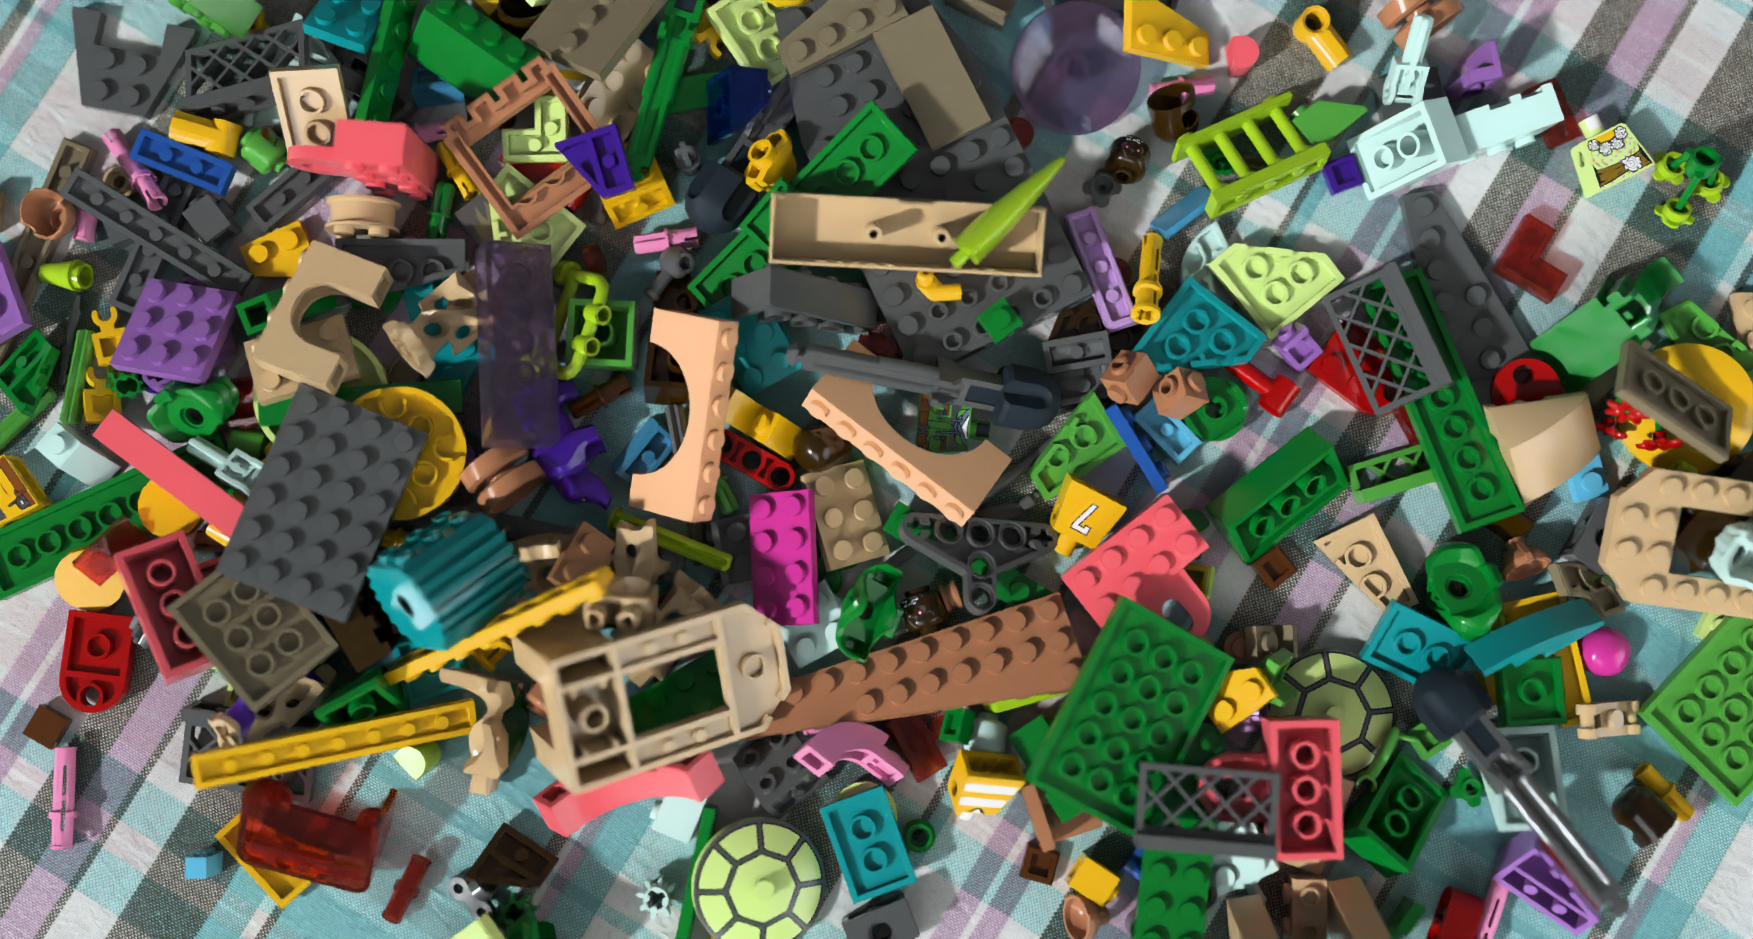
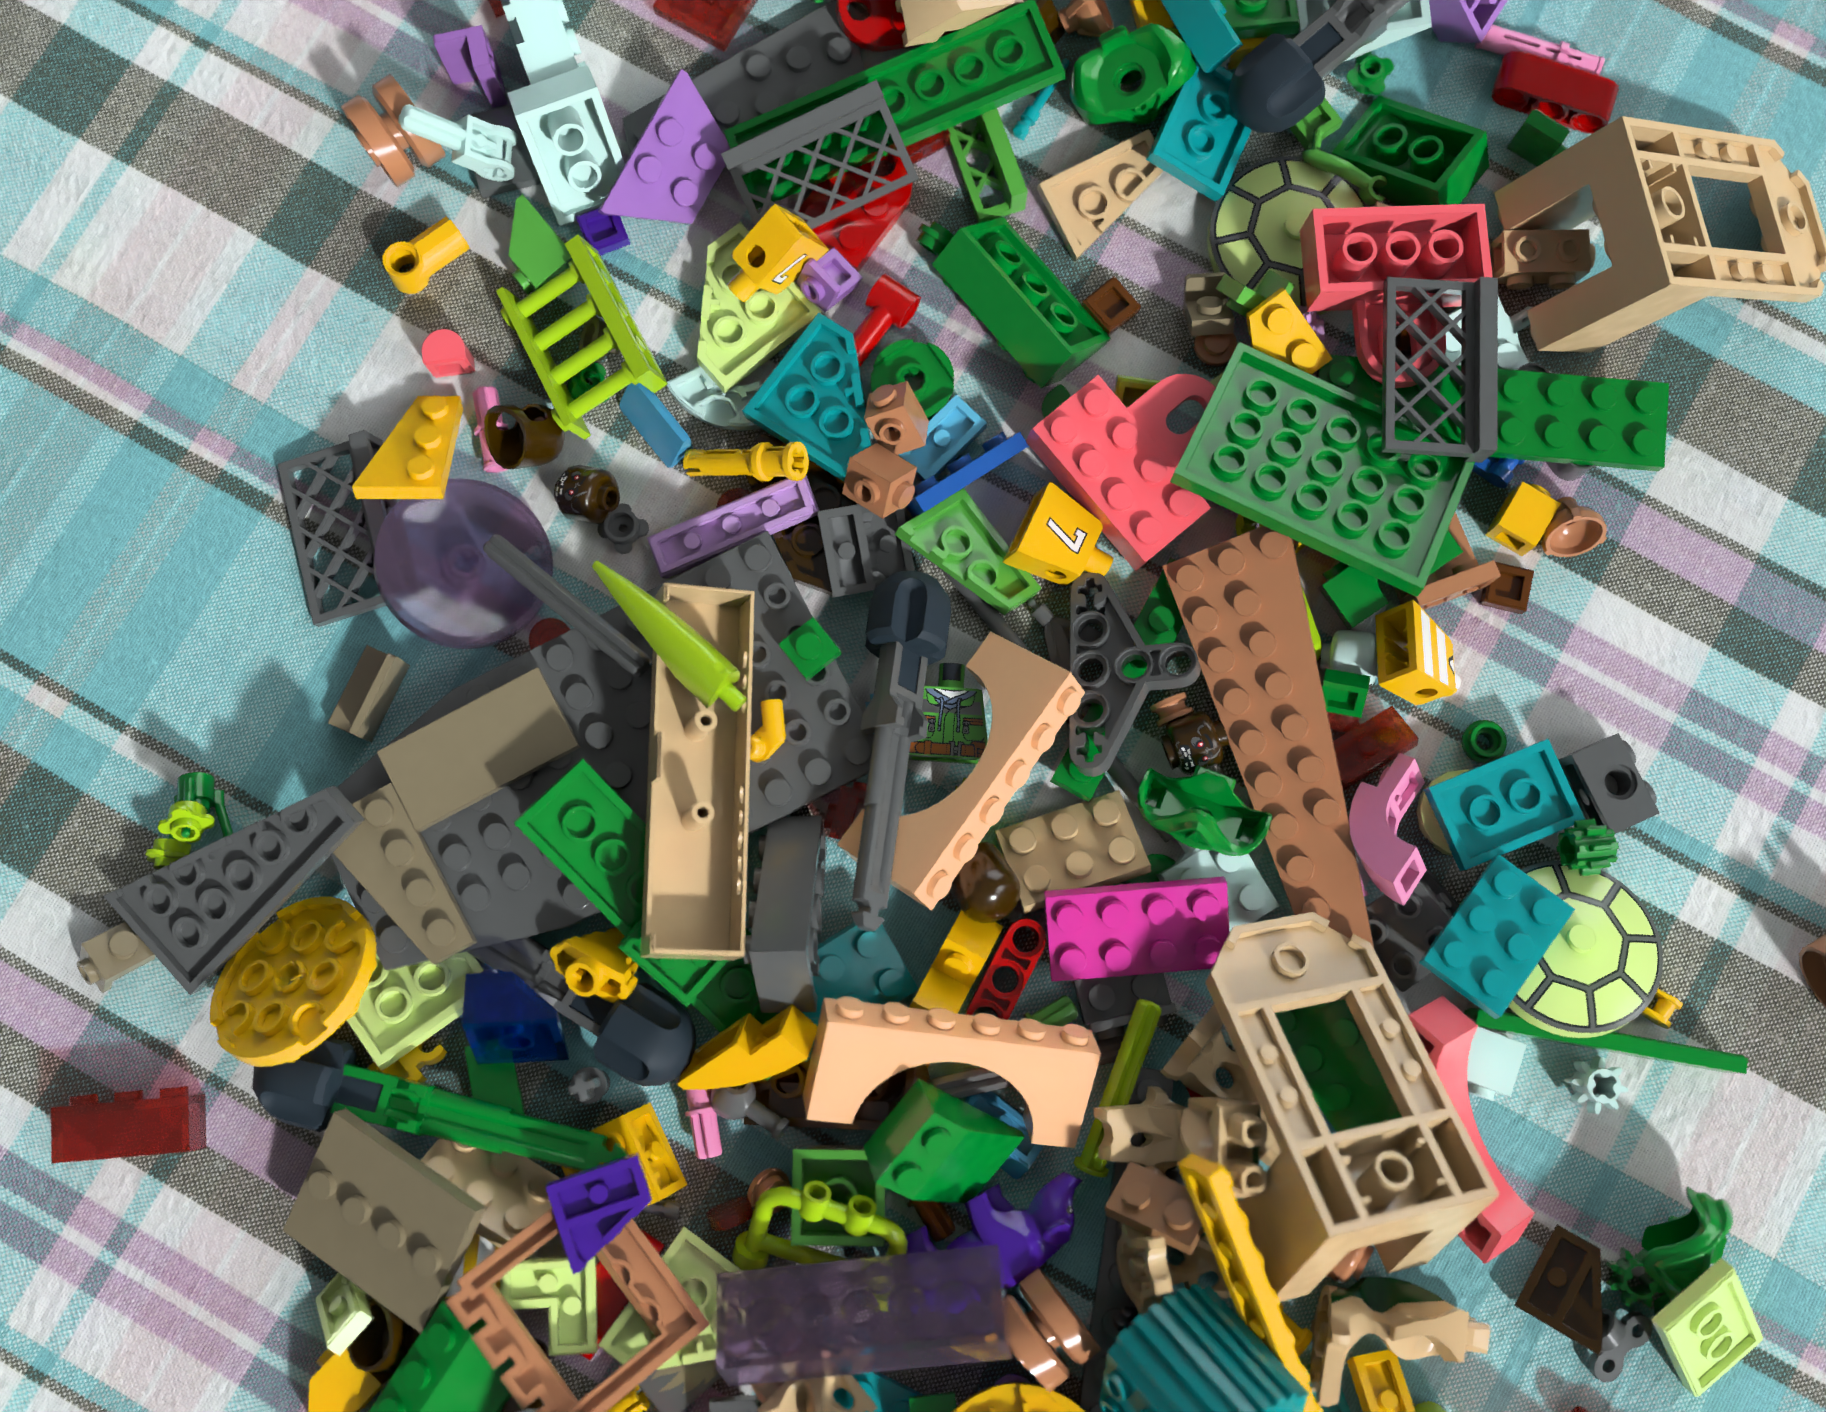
camera: 95 degrees left, 5 degrees down
(616, 285) = (765, 1180): none -> nougat plate
(631, 404) = (938, 1147): none -> green slope
(705, 271) = (750, 1051): none -> yellow slope
(767, 825) = (1497, 936): none -> teal plate
(833, 904) = (1587, 847): none -> green gear
(1038, 142) = (567, 606): none -> dark grey axle
(1314, 302) = (774, 253): none -> yellow torso
(1330, 429) = (934, 238): none -> green plate
(1395, 226) = (672, 160): none -> medium lavender wing
(1437, 512) = (1032, 112): none -> teal piece

